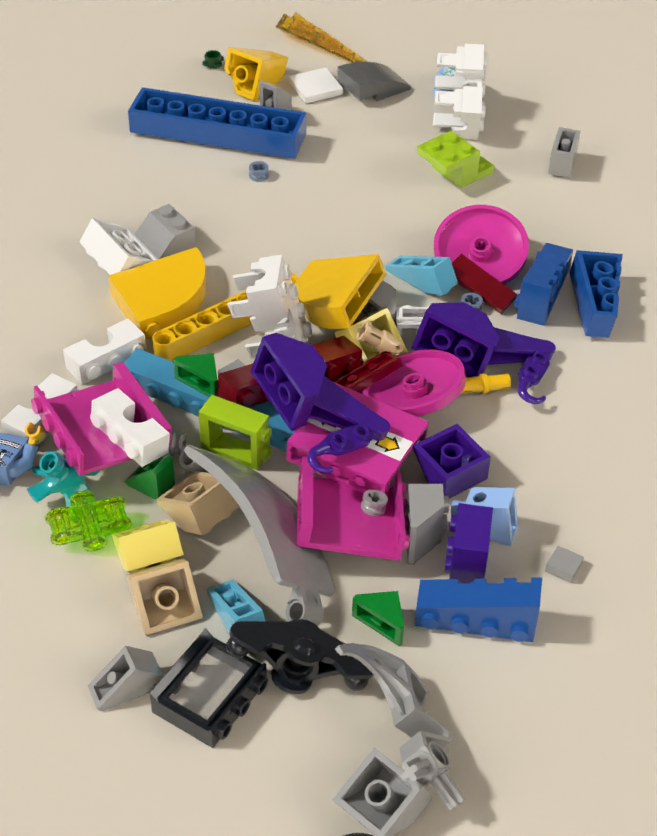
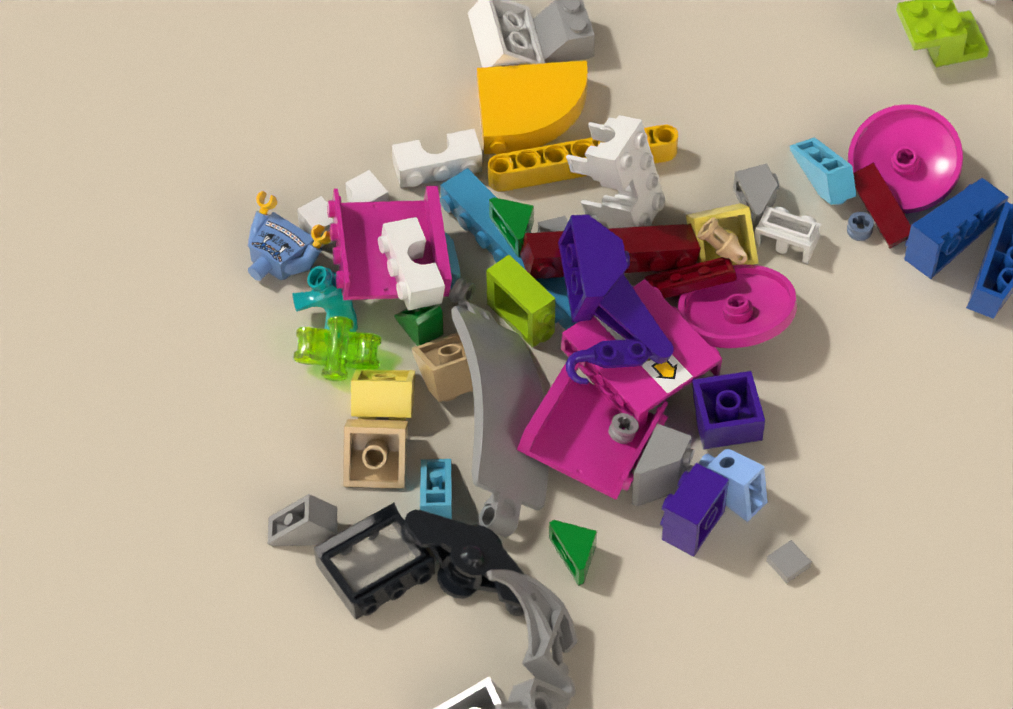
camera: 25 degrees right, 10 degrees up
(338, 289) = (710, 164): yellow brick -> none
(474, 340) = (826, 281): dark purple slope -> none
(480, 607) = (671, 577): blue wedge -> none
(486, 383) = (818, 329): yellow pin -> none

